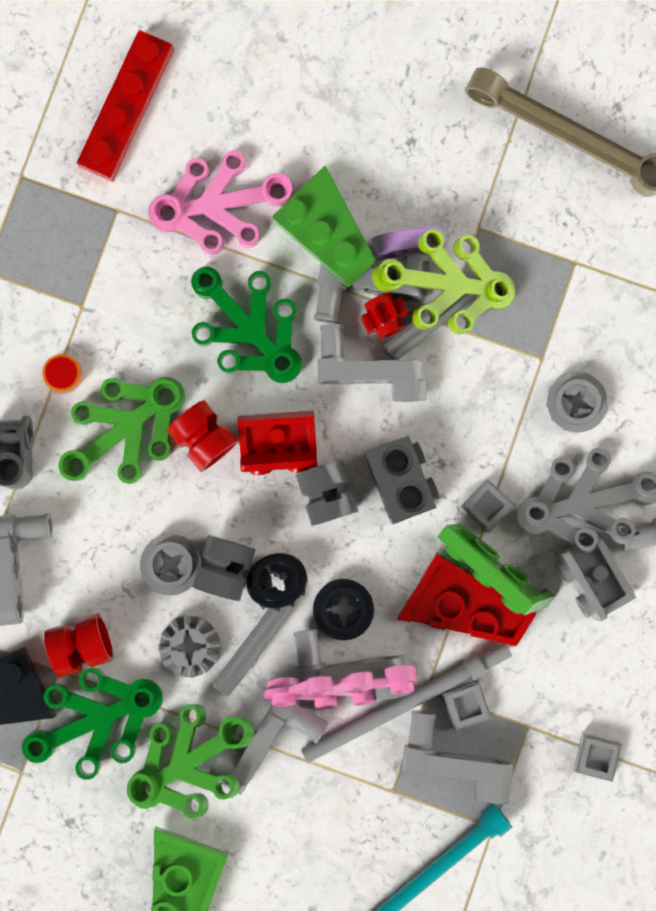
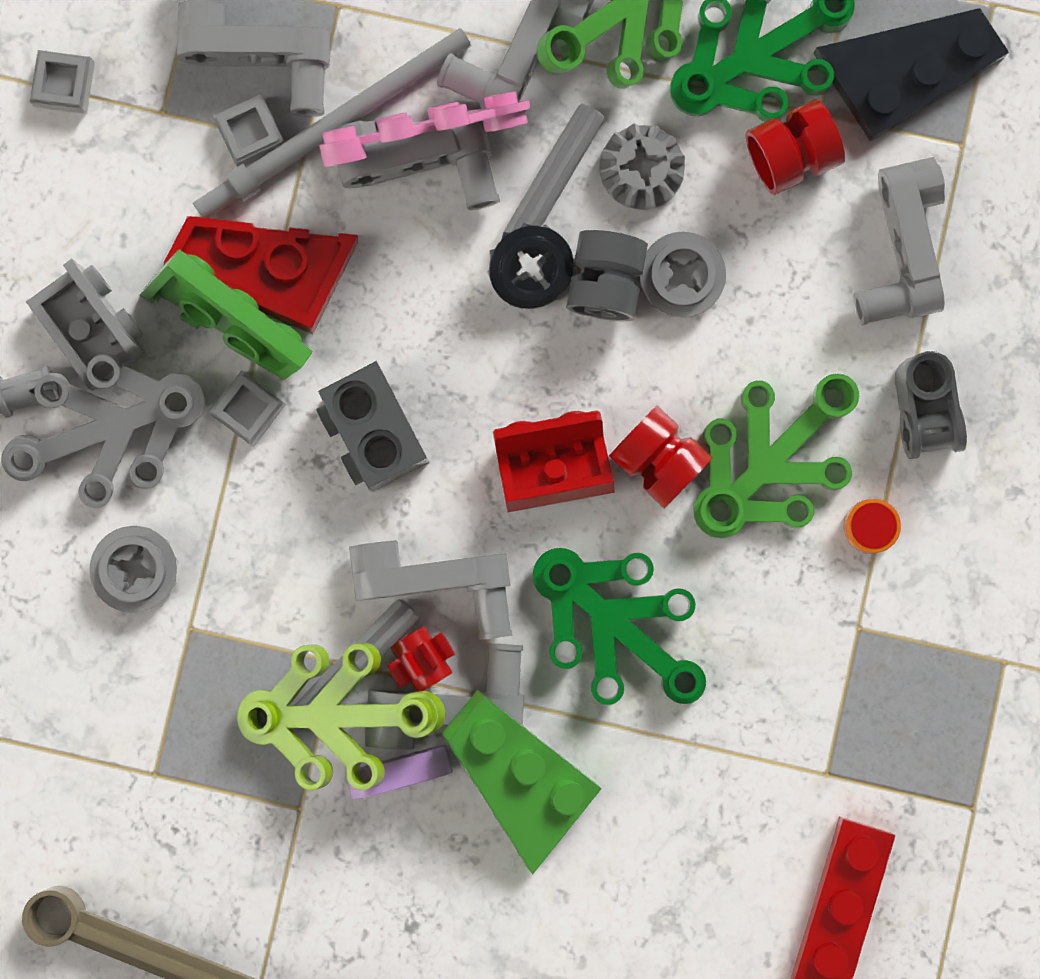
camera: 175 degrees right, 0 degrees up
(214, 203) = (688, 799): bright pink plant -> none
(323, 479) = (483, 413): dark grey wheel -> none
(356, 622) = (414, 225): black gear -> none

